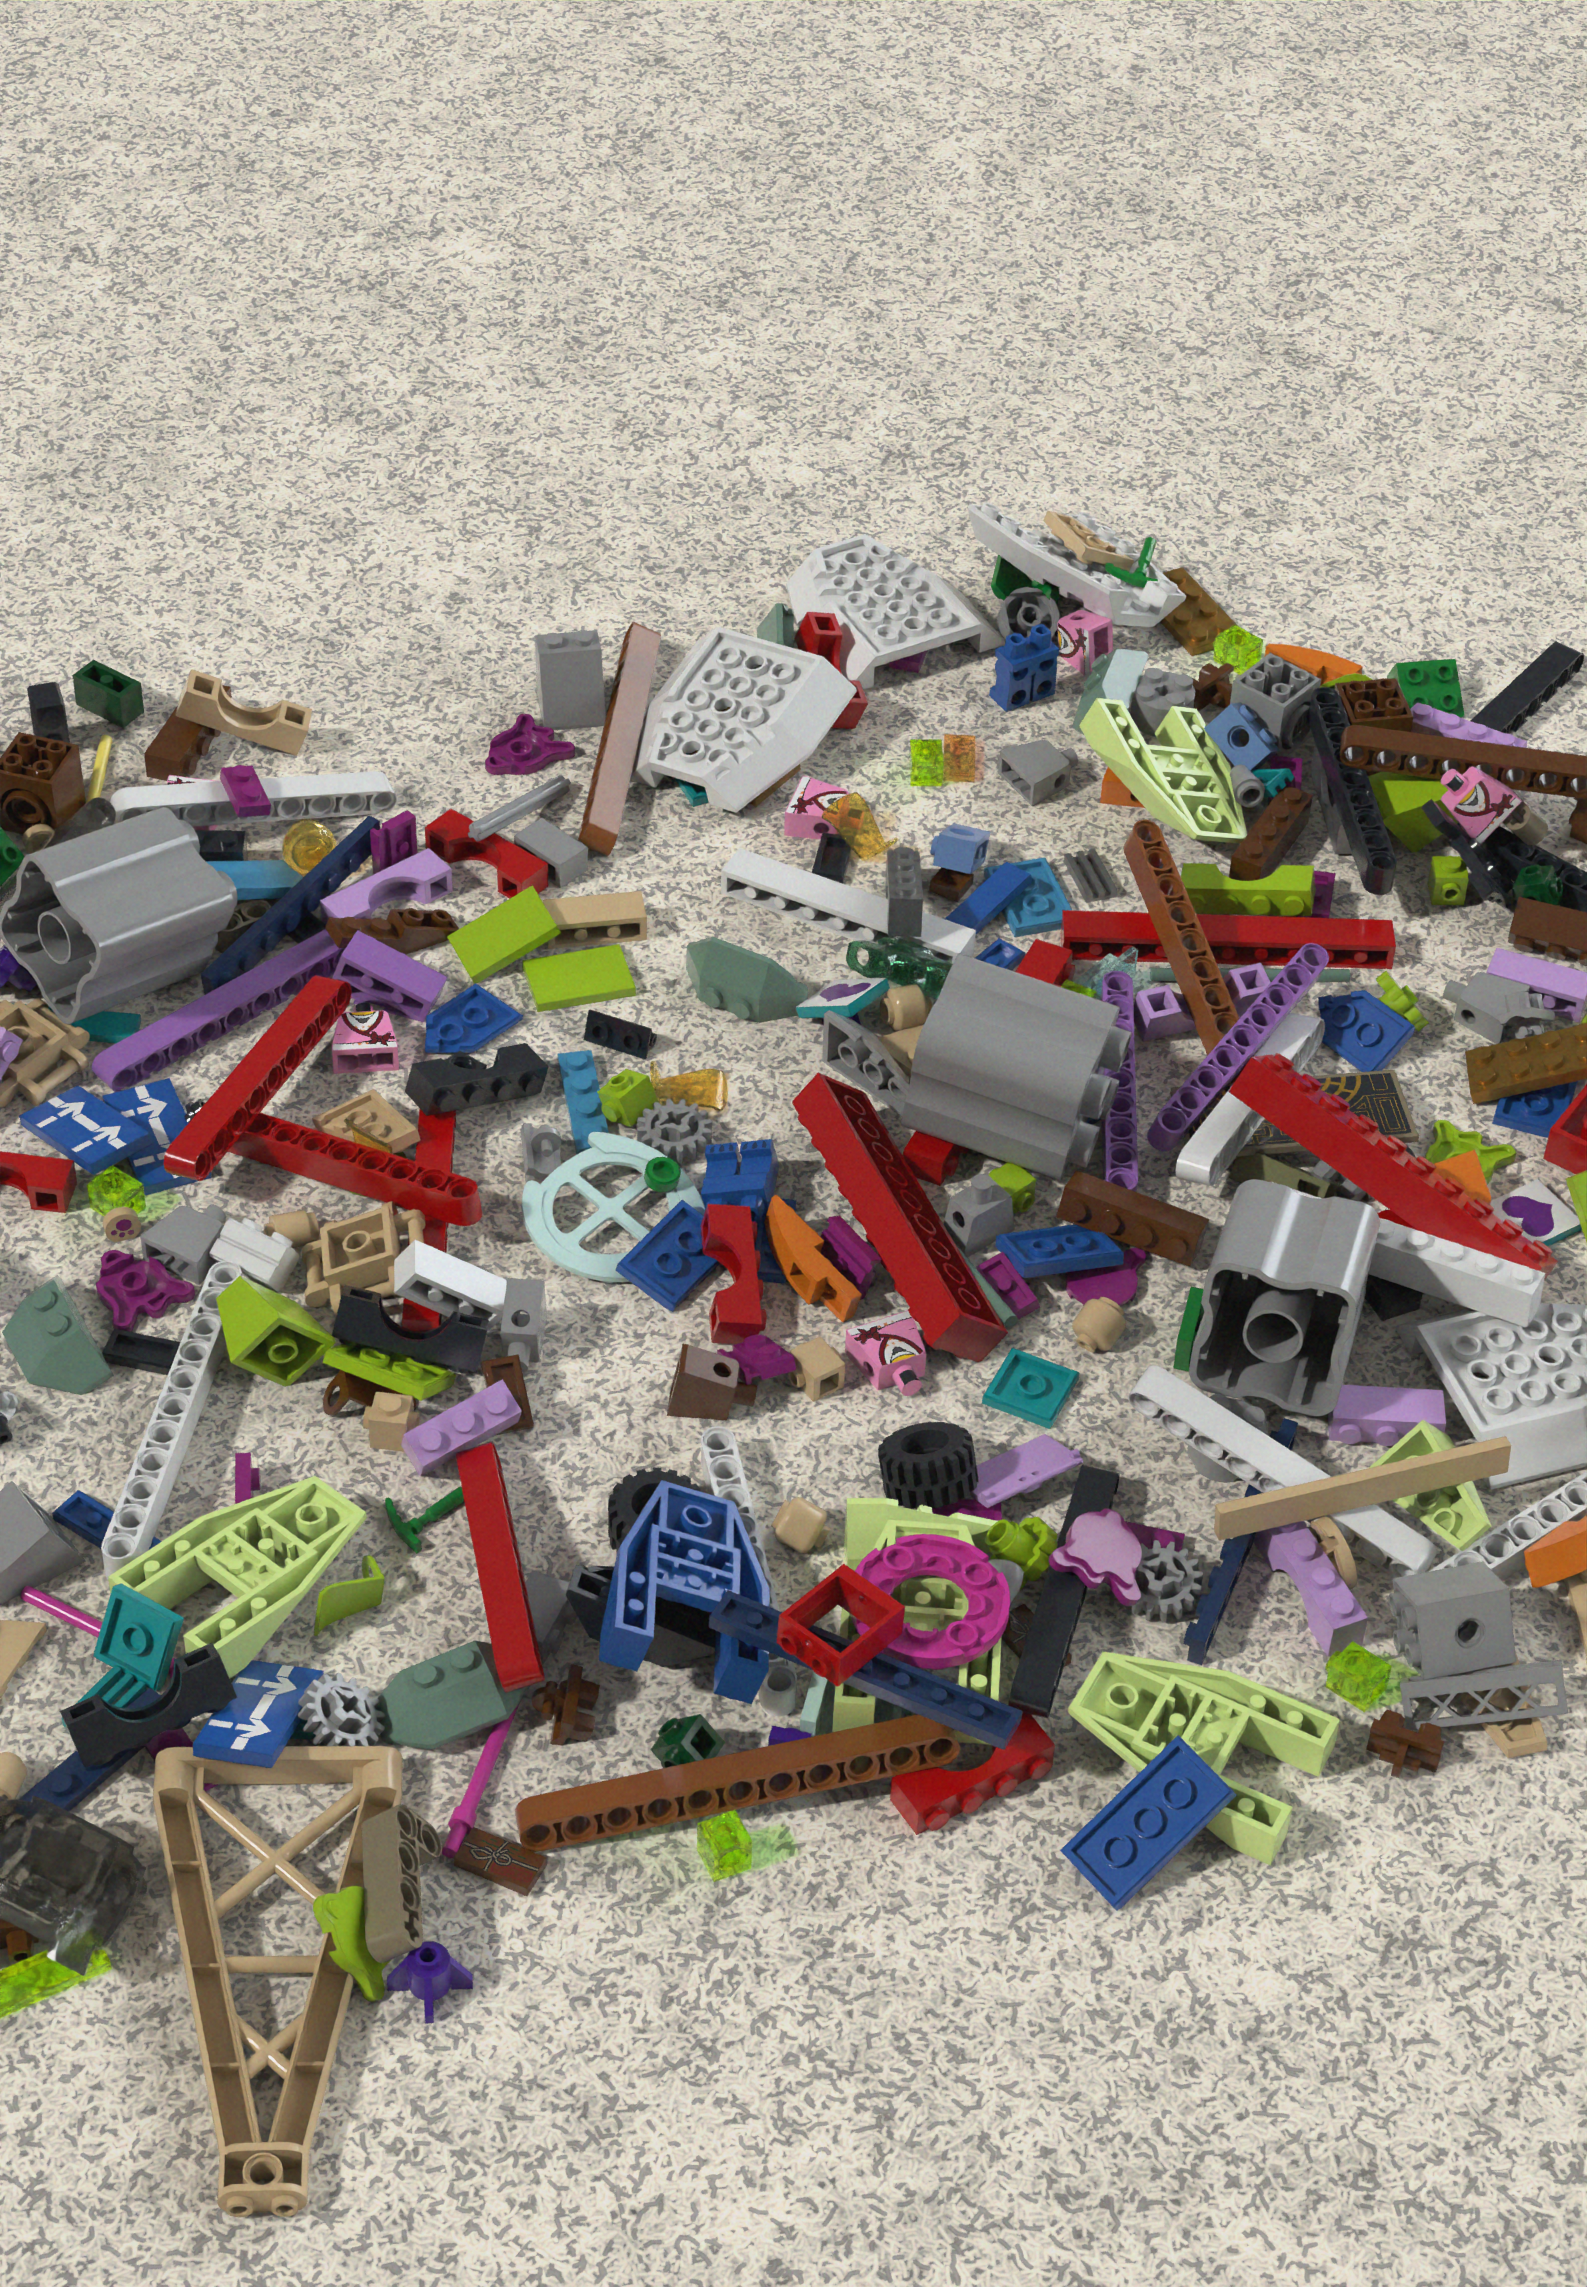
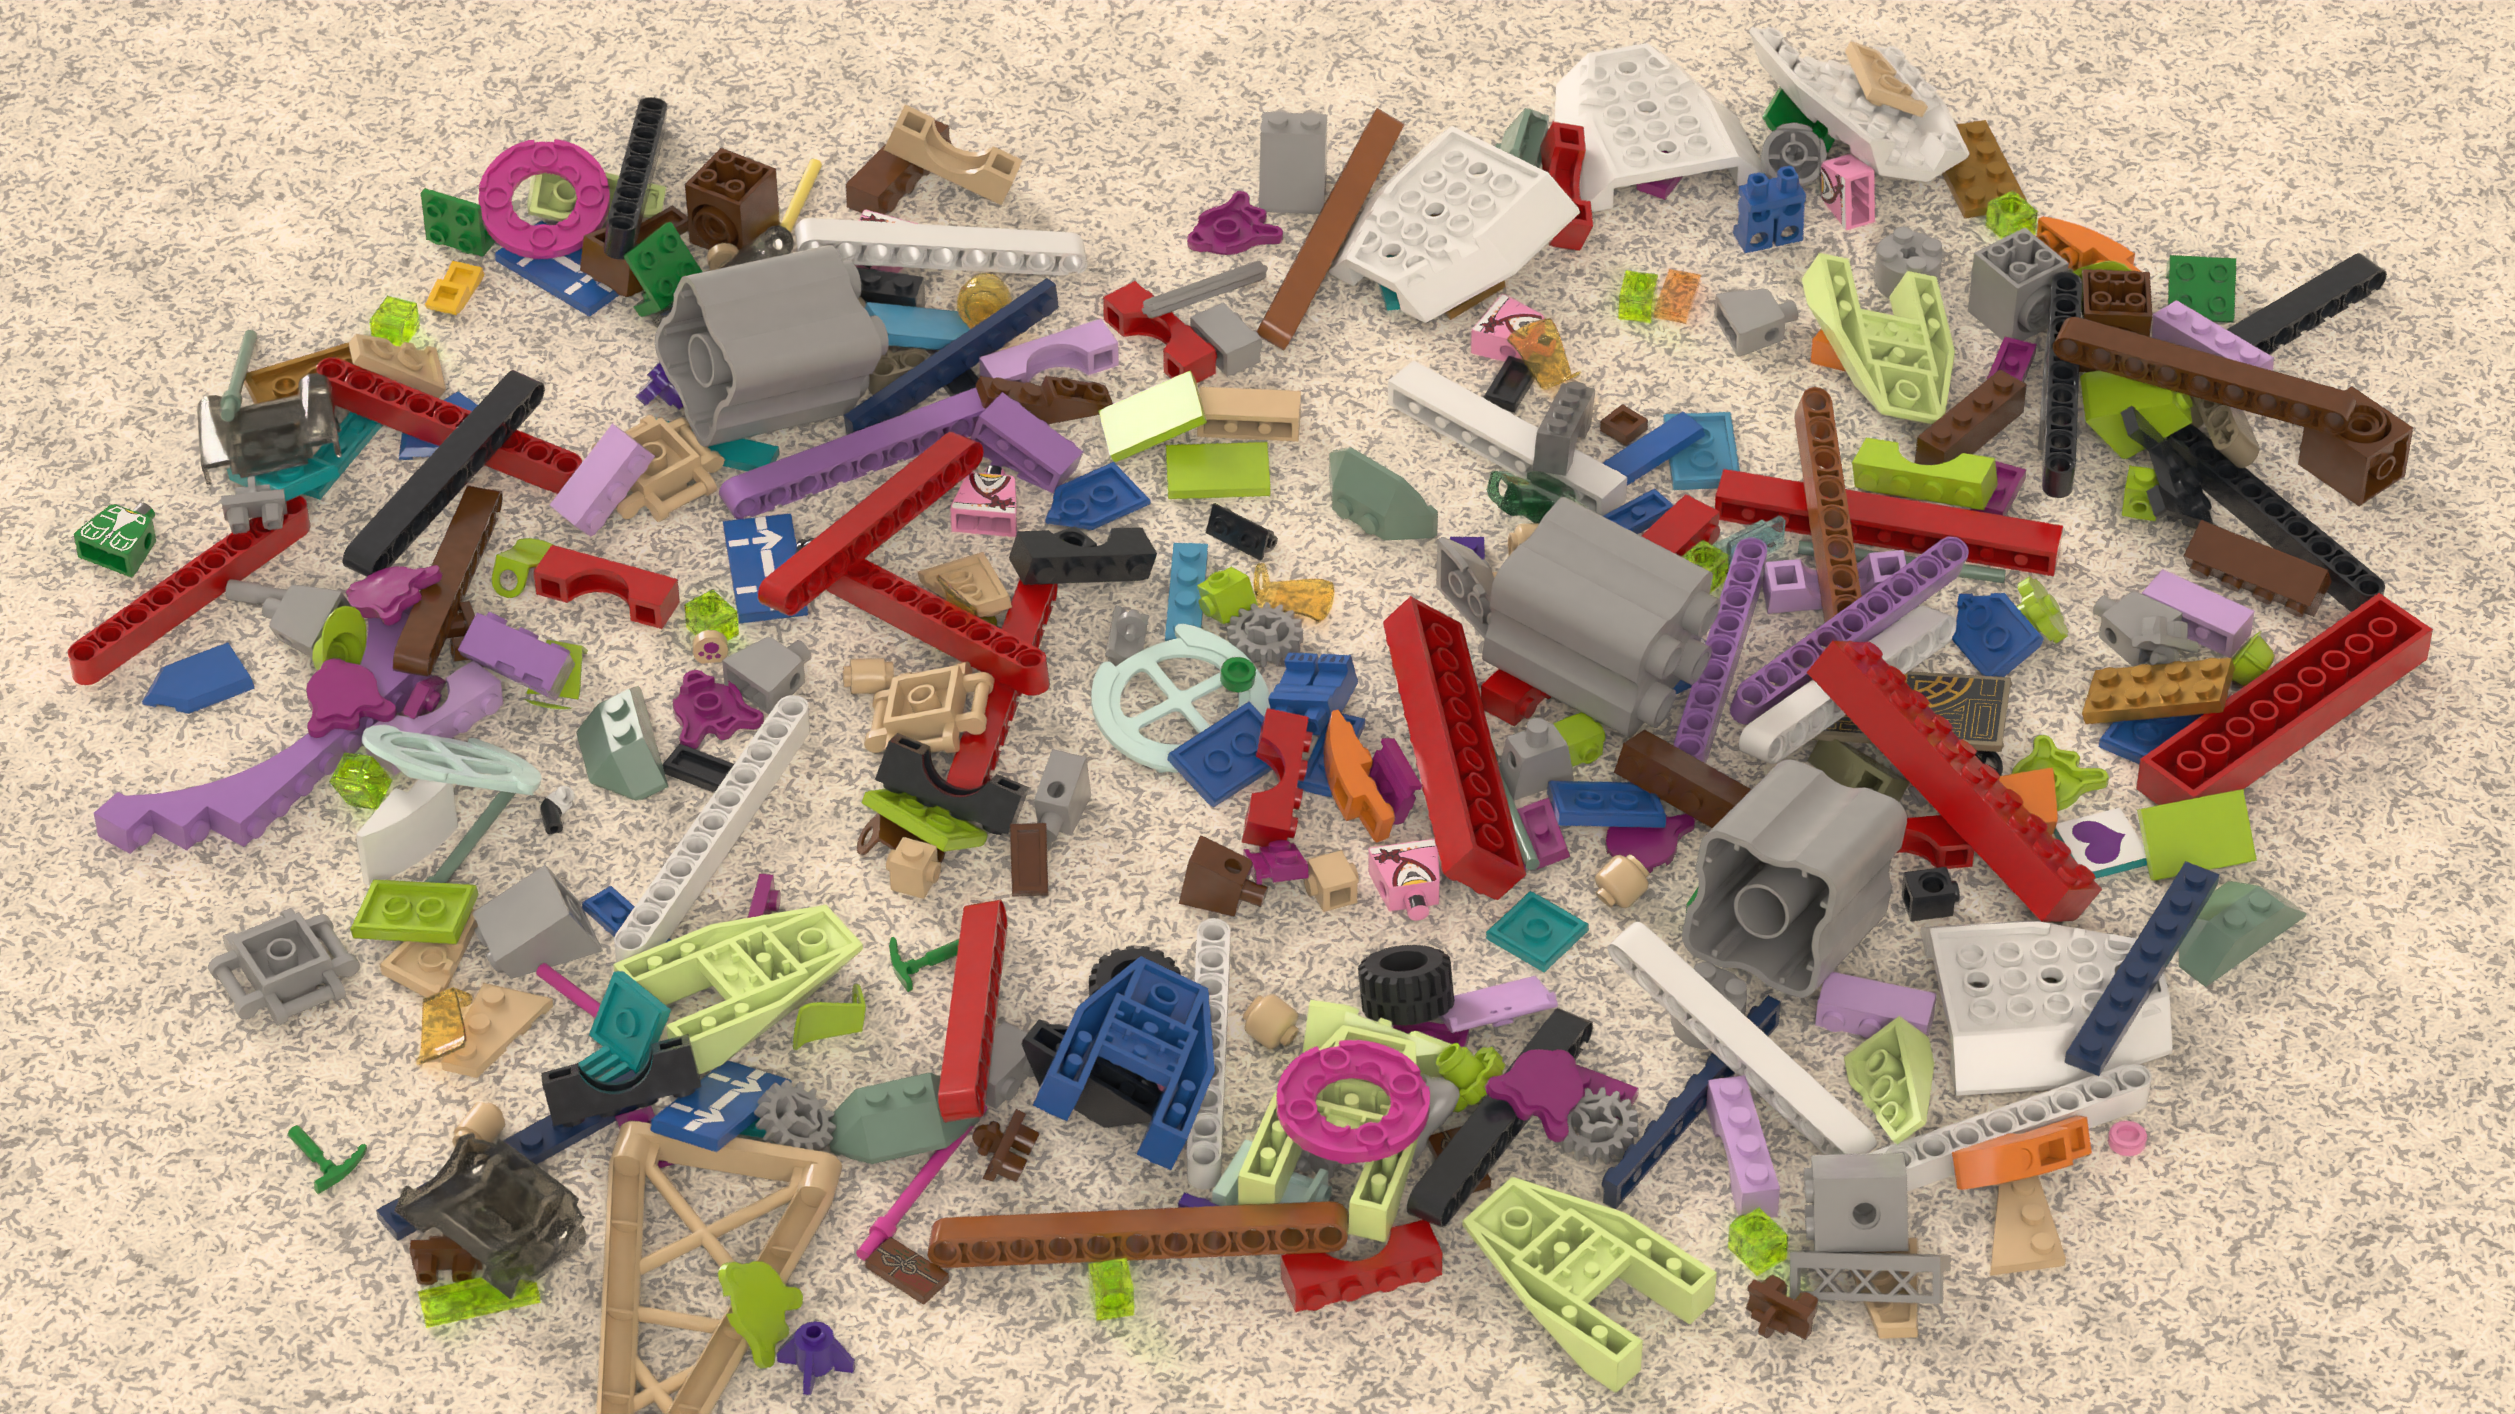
camera: 15 degrees right, 0 degrees up
(48, 711) = (760, 131): black brick -> none
(86, 1130) = (697, 551): blue tile -> none
(108, 693) = (826, 116): dark green brick -> none
(245, 791) = (929, 236): magenta plate -> none
(259, 1256) = (827, 694): white brick -> none
(270, 1332) = (819, 767): lime slope -> none
(393, 841) = (1067, 307): magenta plate -> none
(393, 1851) = (805, 1243): dark tan beam -> none
(448, 1283) = (996, 746): white brick -> none
(461, 1427) = (974, 882): lavender brick -> none
(686, 1741) = (1102, 1192): dark green brick -> none
(843, 997) = (1472, 526): tile -> none
(849, 1591) = (1261, 1074): red window -> none
(880, 1676) = (1272, 1151): dark blue plate -> none
(960, 848) = (1641, 391): medium blue brick -> none
(1082, 859) = (1770, 419): flat silver tile -> none
(1112, 678) = (1860, 233): wedge -> none
(1139, 577) = (1929, 122): green piece -> none
(1148, 1823) = (1504, 1332): blue tile -> none
(1213, 686) = (1960, 258): reddish brown hips -> none
(1226, 731) = (1959, 306): medium blue brick -> none
(1246, 786) = (1958, 366): light grey cone -> none
(1273, 779) = (1981, 363): teal tile -> none
(1335, 1548) = (1770, 1125): tan tile -> none
(1361, 1488) = (1809, 1067): tan tile -> none
(1455, 1272) = (1974, 878): white brick -> none
(1477, 801) = (2186, 414): torso -> none
(1538, 884) = (2233, 512): dark green brick -> none

